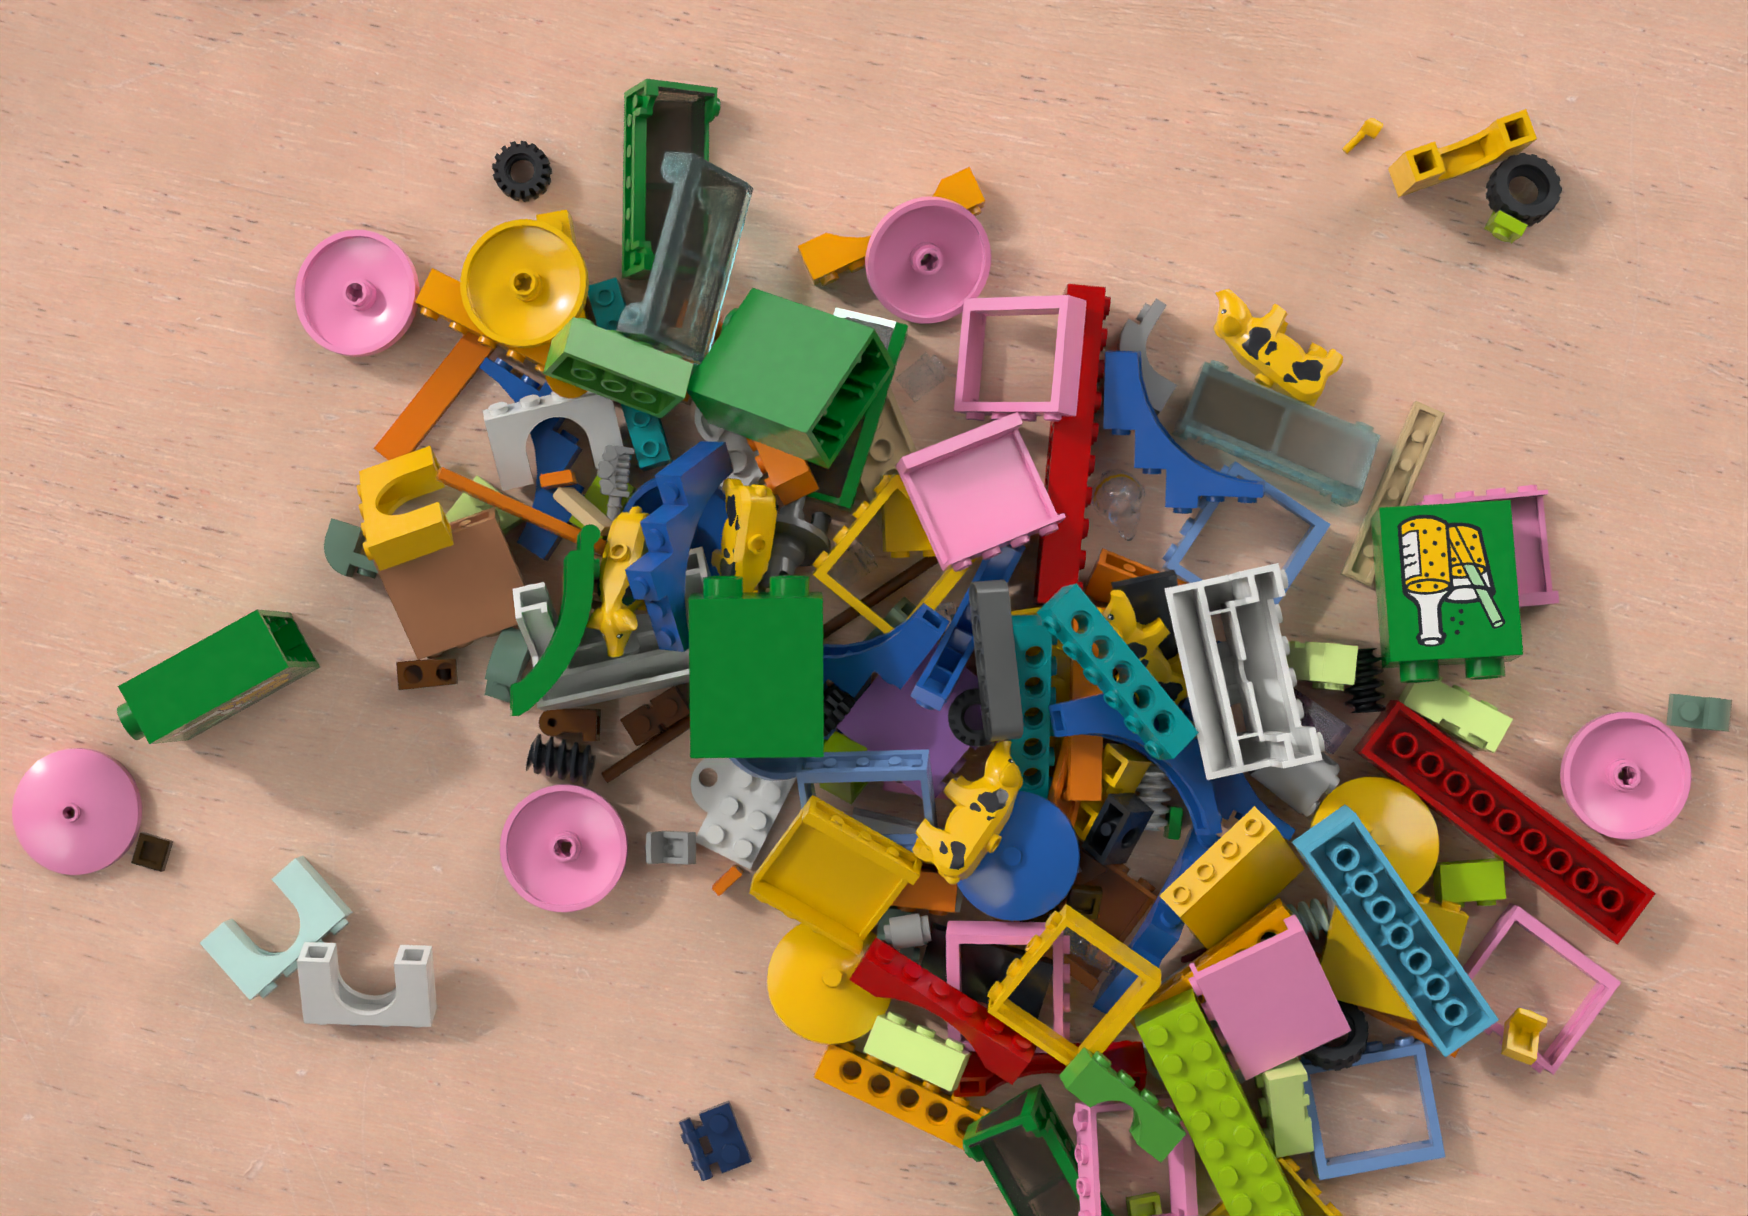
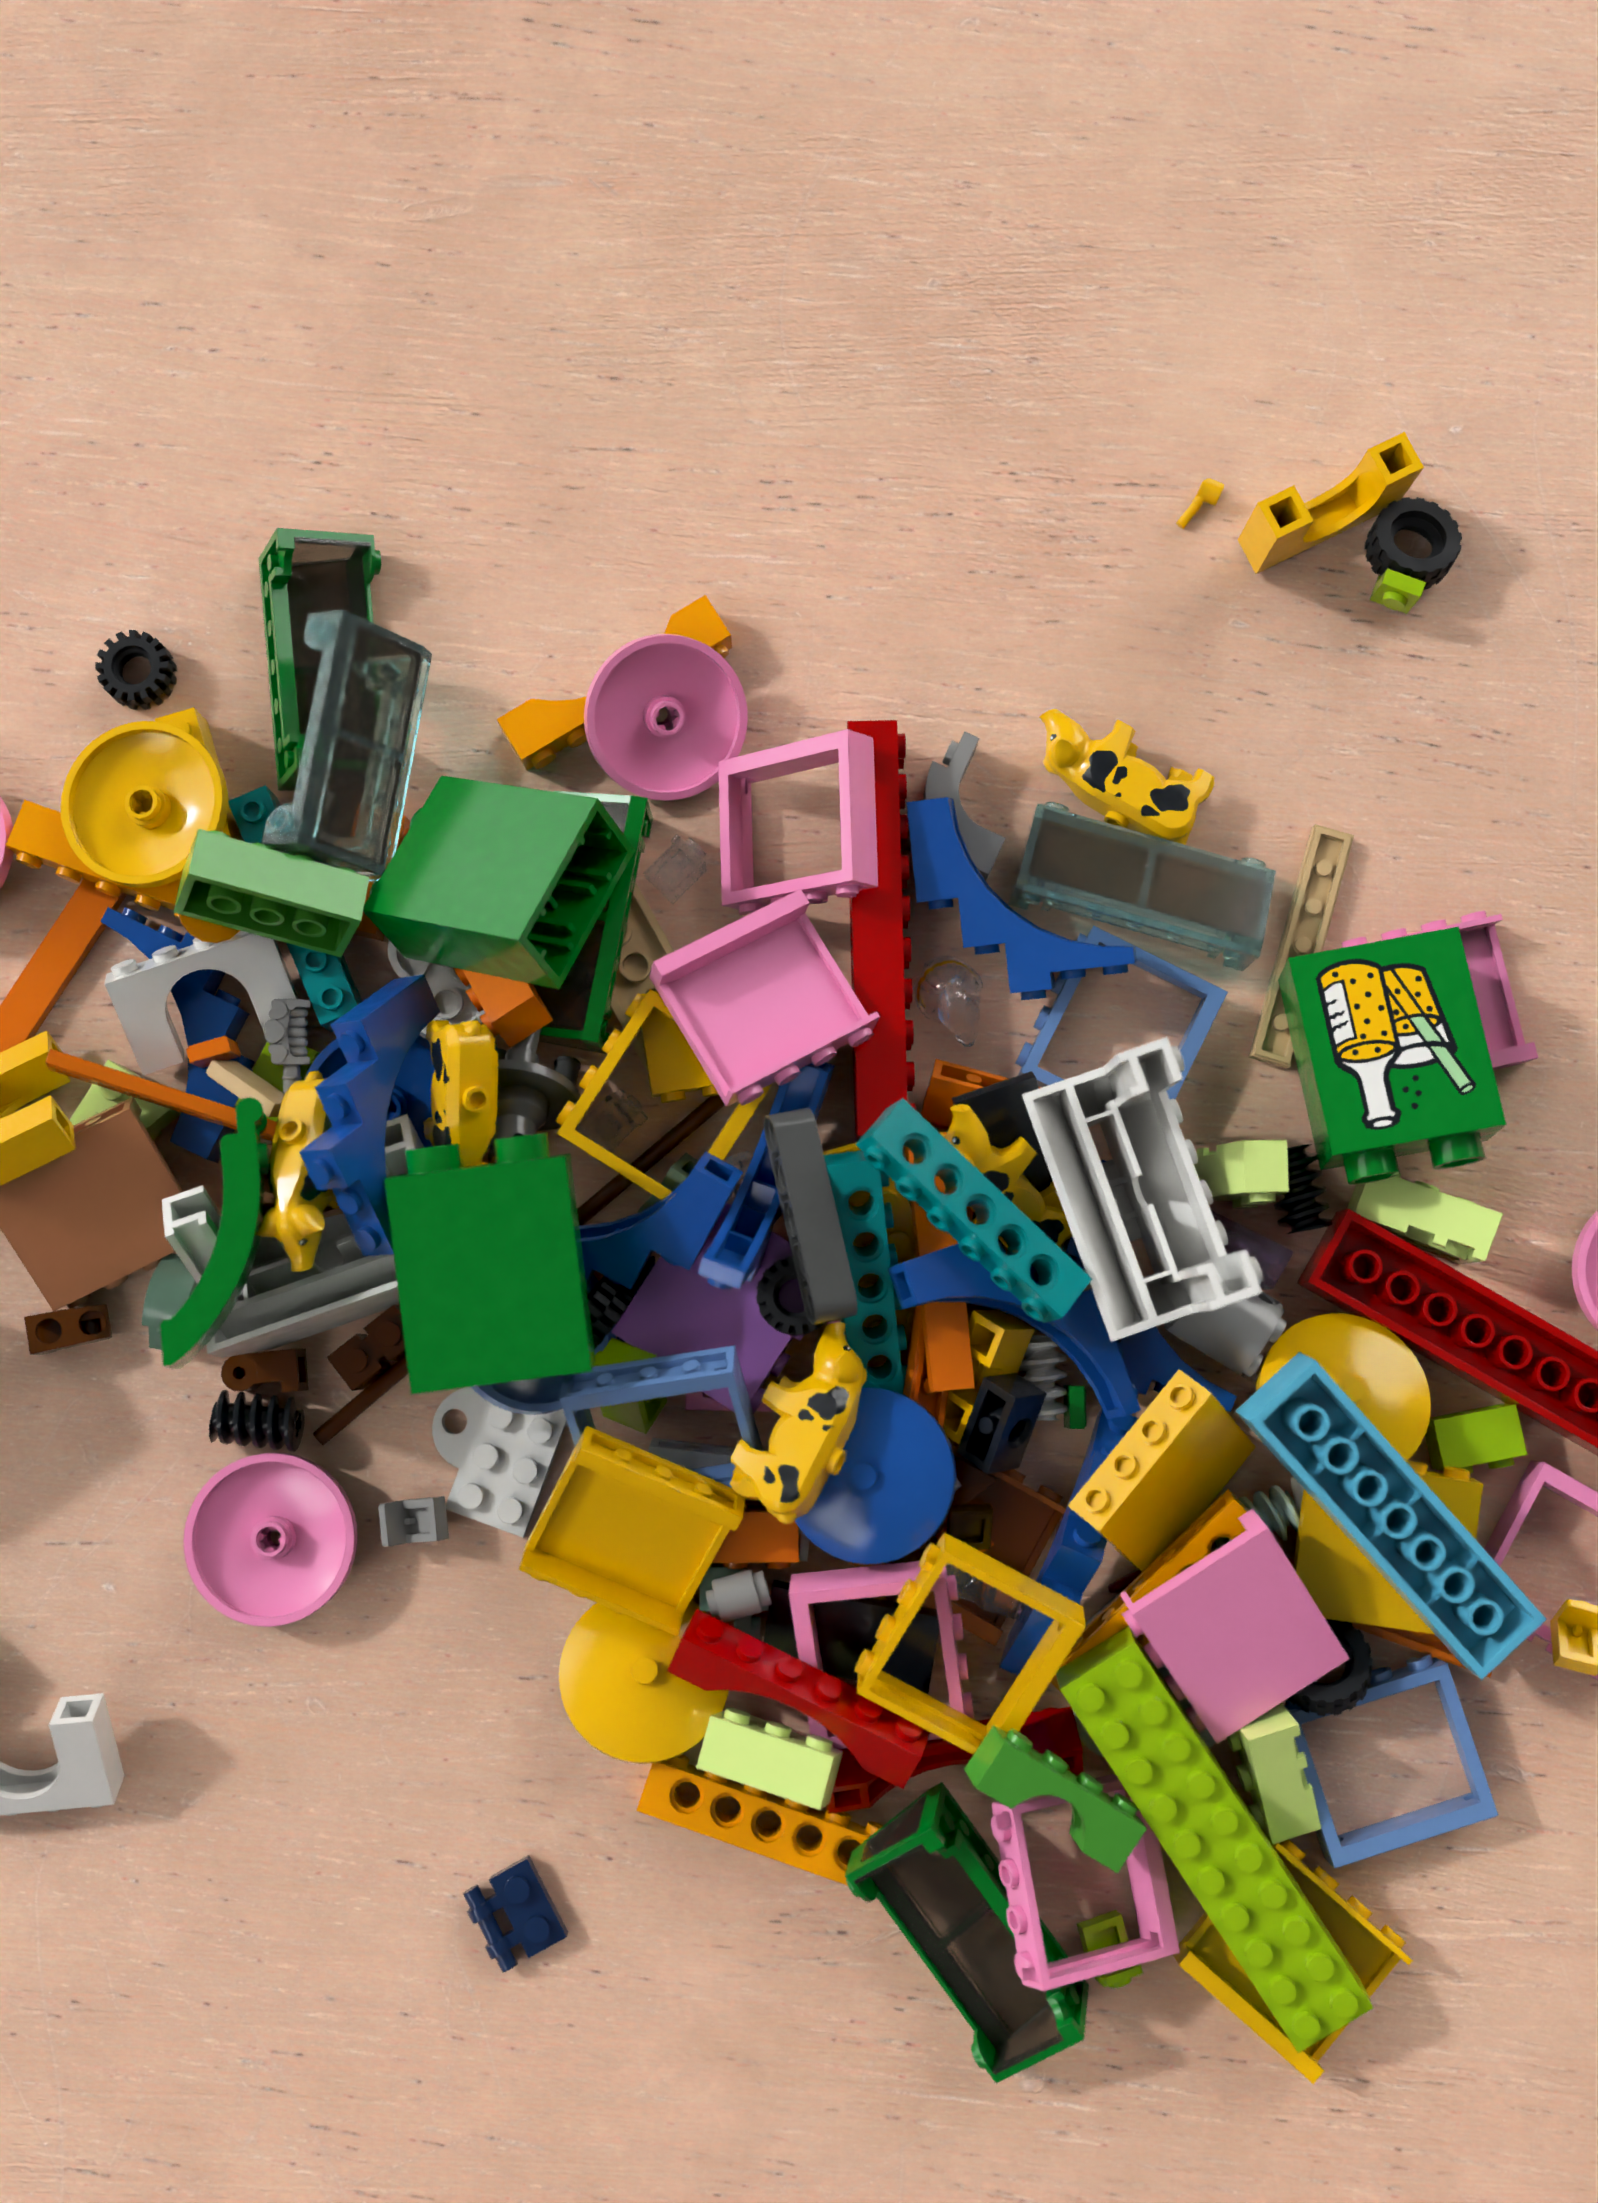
camera: 10 degrees left, 5 degrees down
(727, 879) = (493, 1555): orange tile -> none

